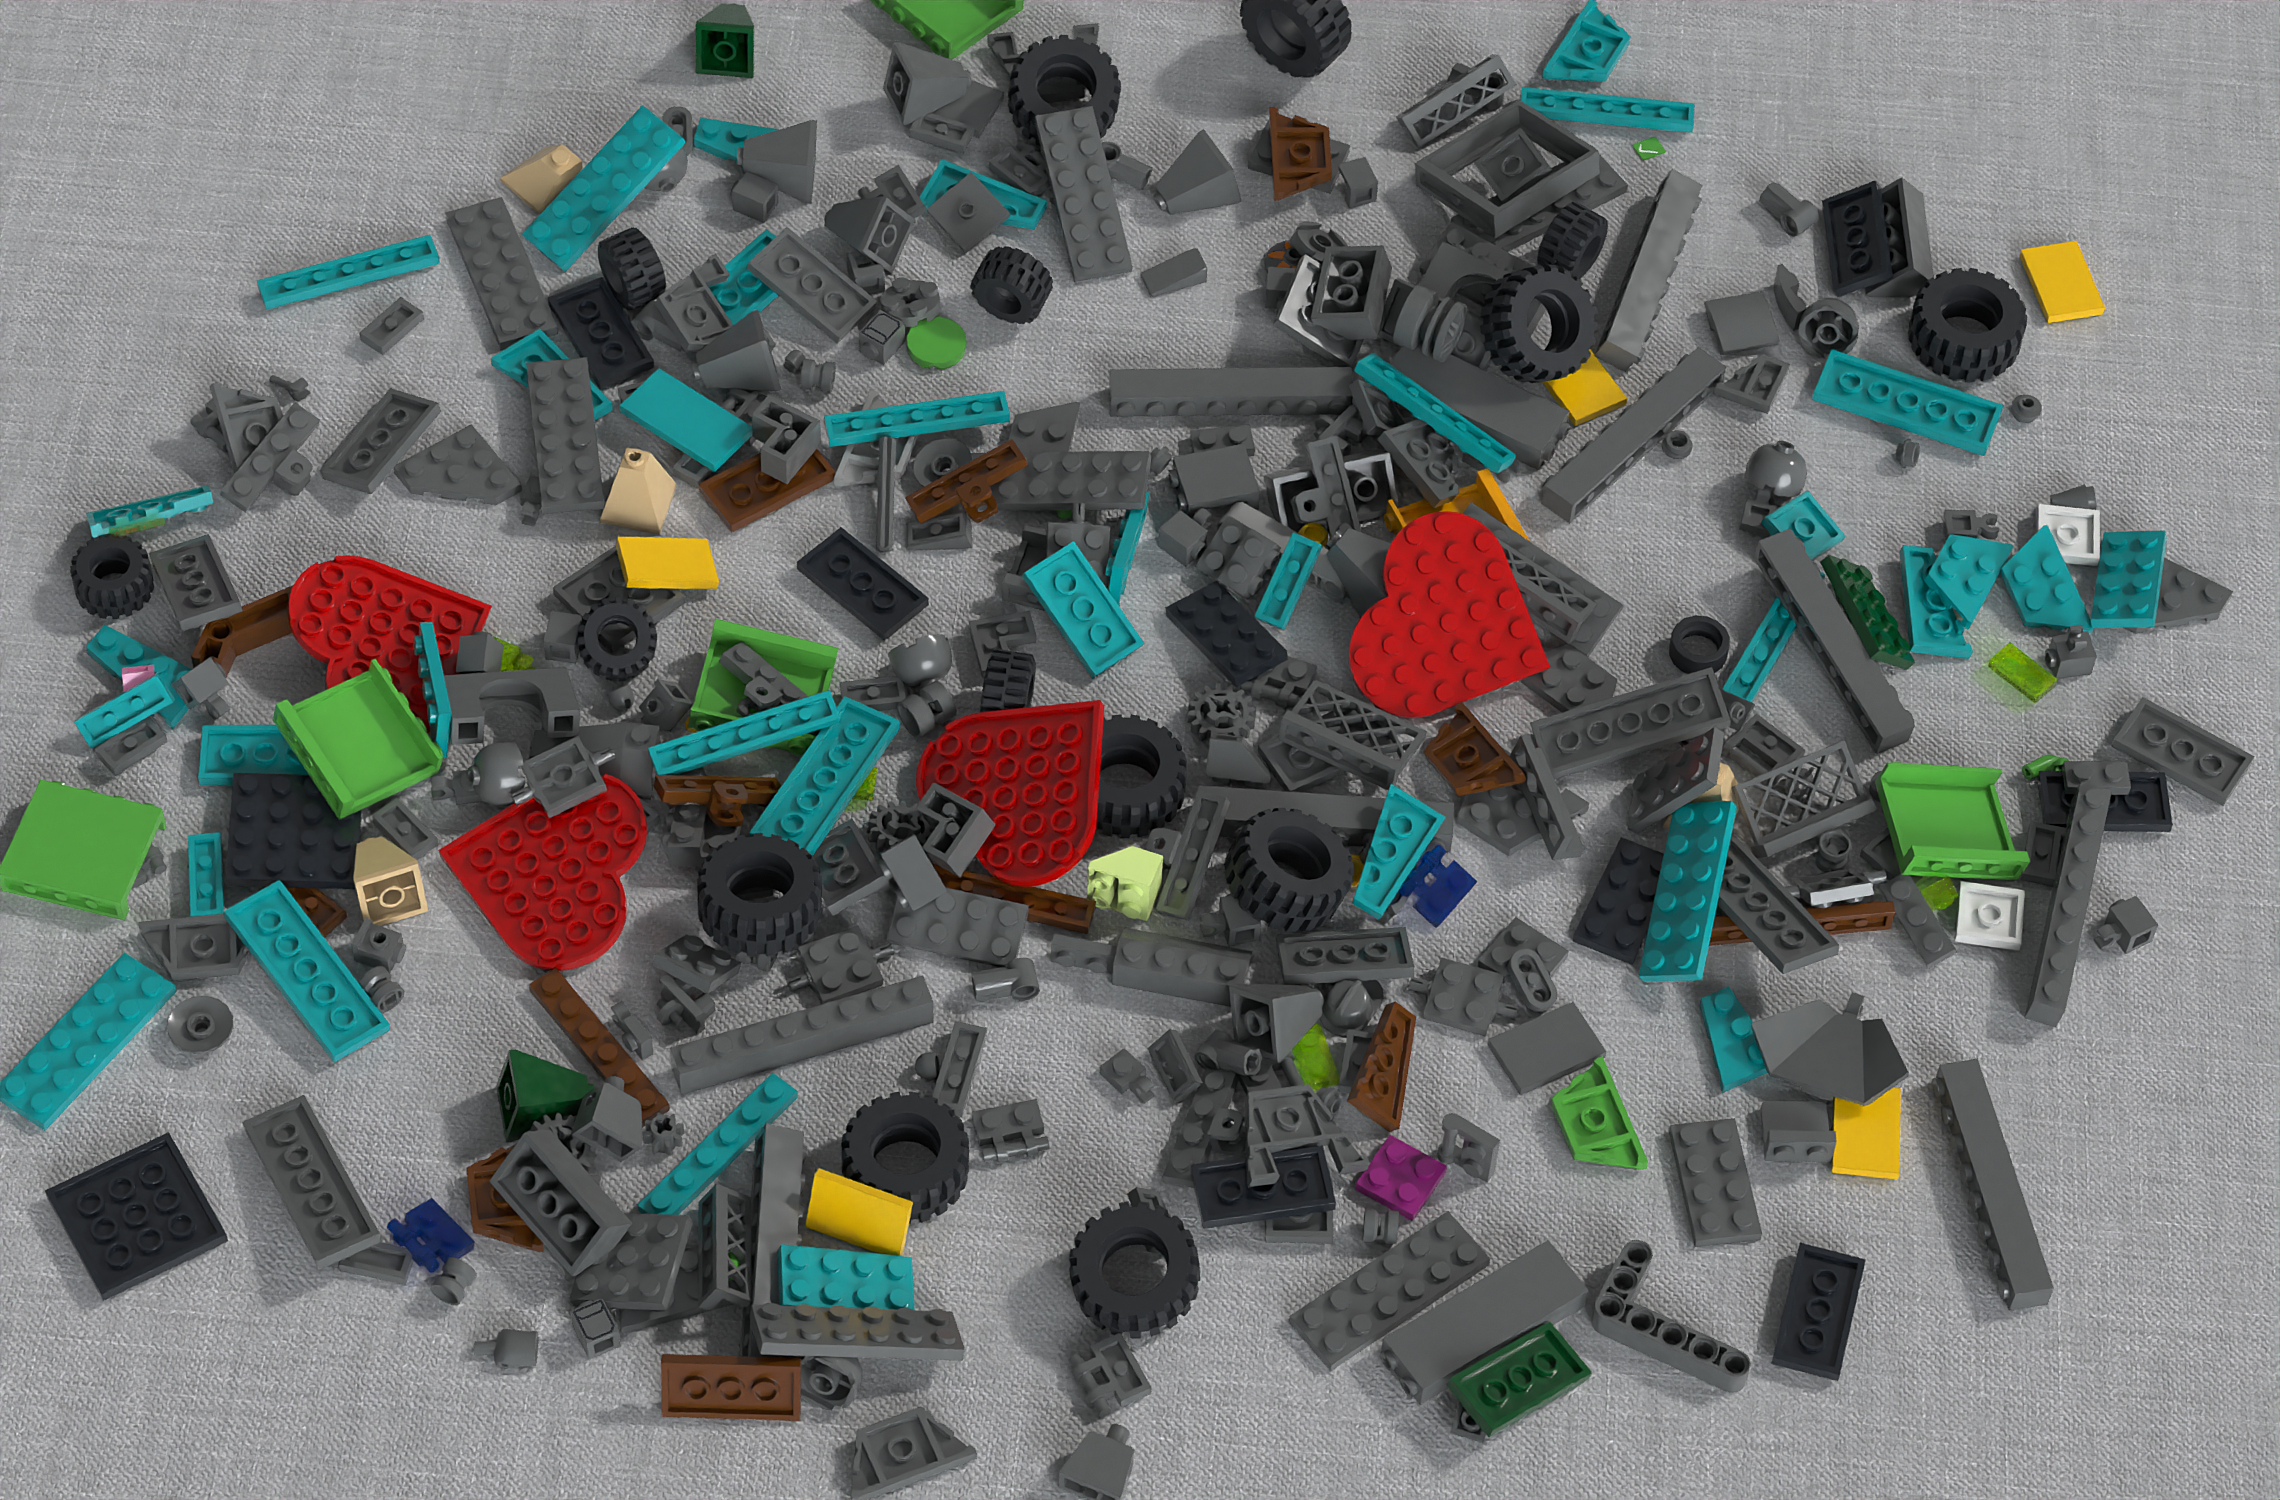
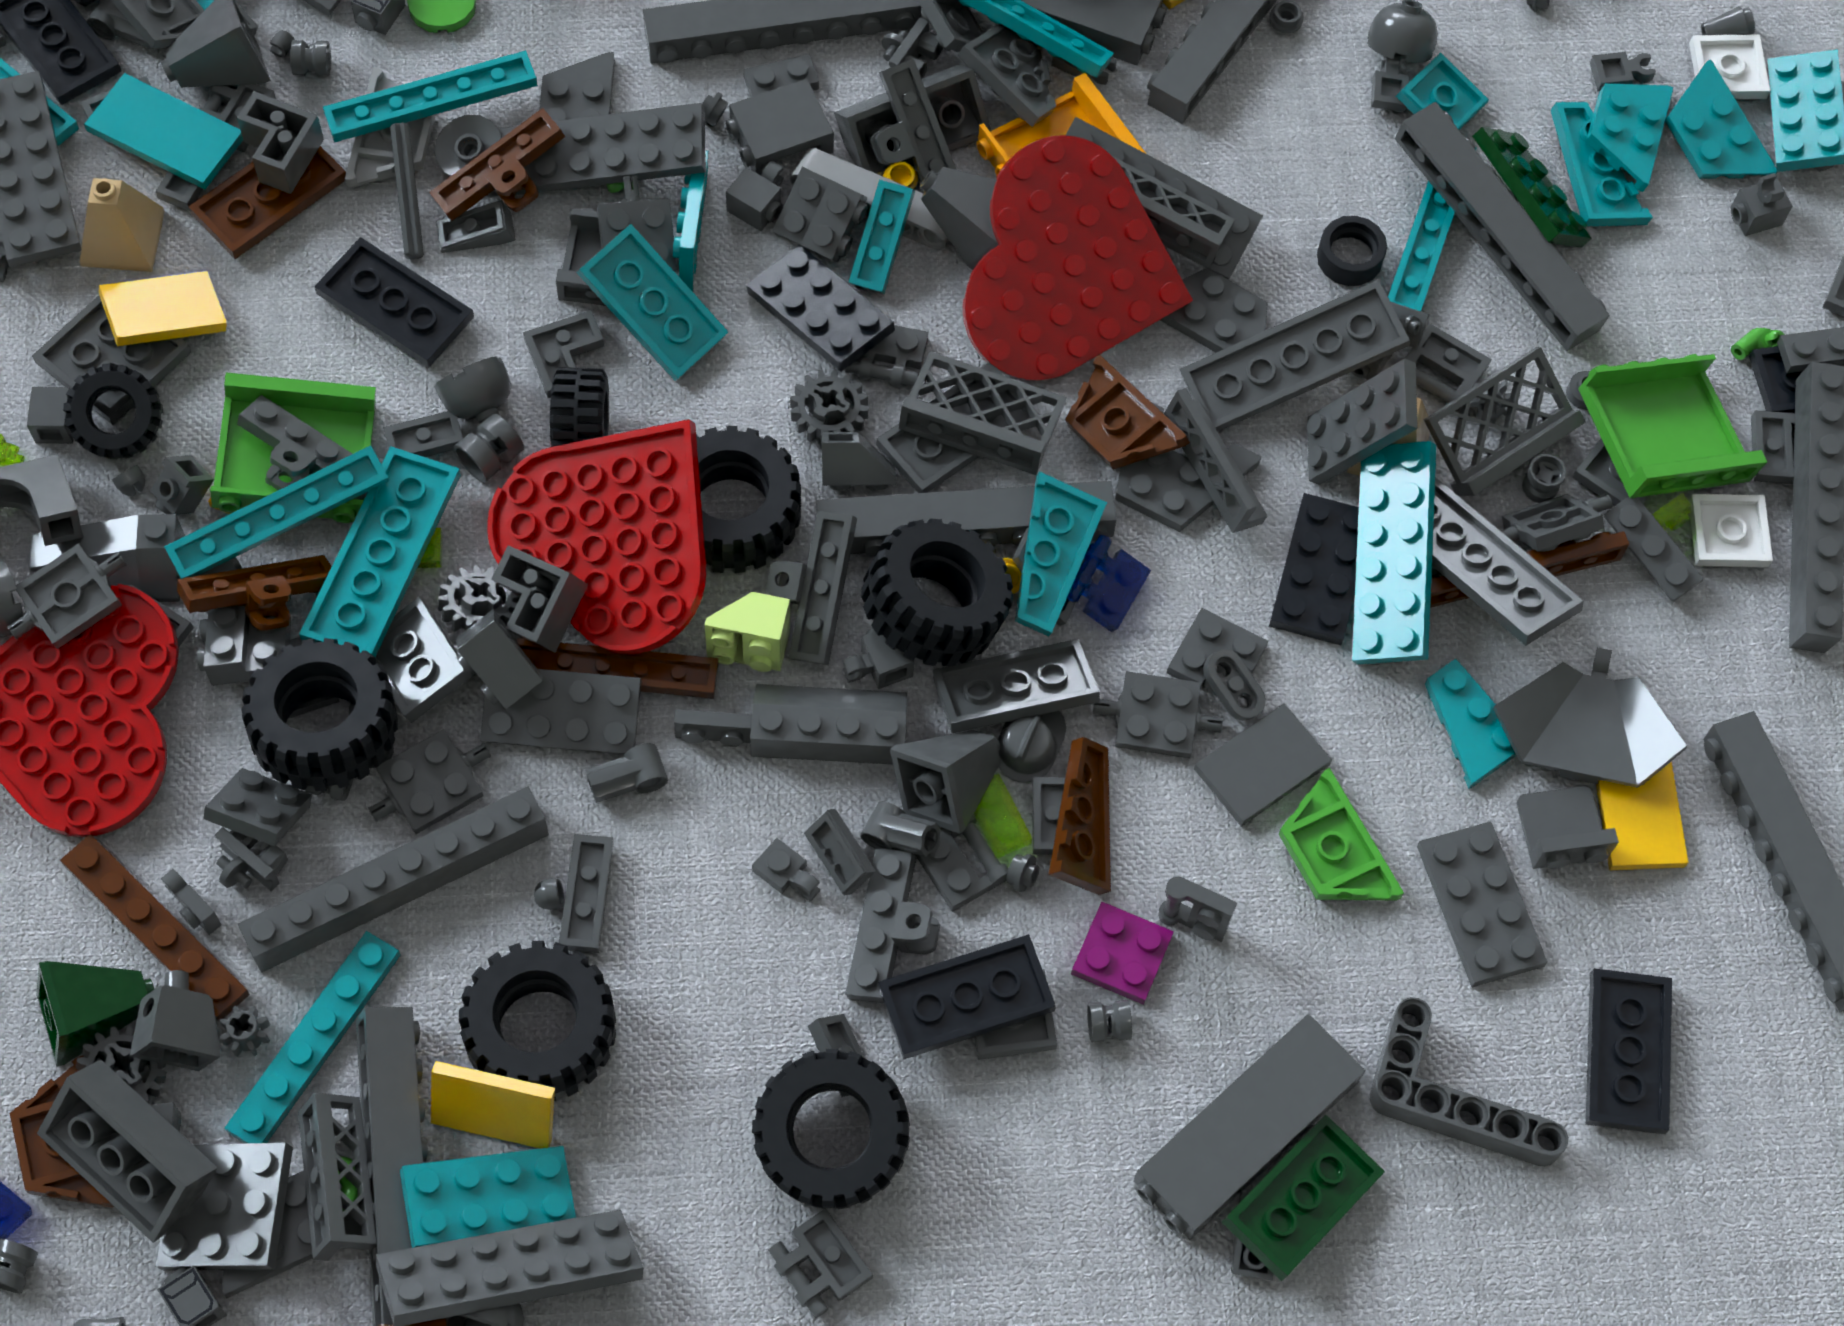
camera: 10 degrees left, 10 degrees up
(1010, 1123) = (653, 953): dark grey plate -> none
(1291, 1121) = (985, 908): dark grey wing -> none
(1389, 1290) = (1130, 1100): dark grey plate -> none
(2022, 672) = (1711, 234): clear neon green plate -> none

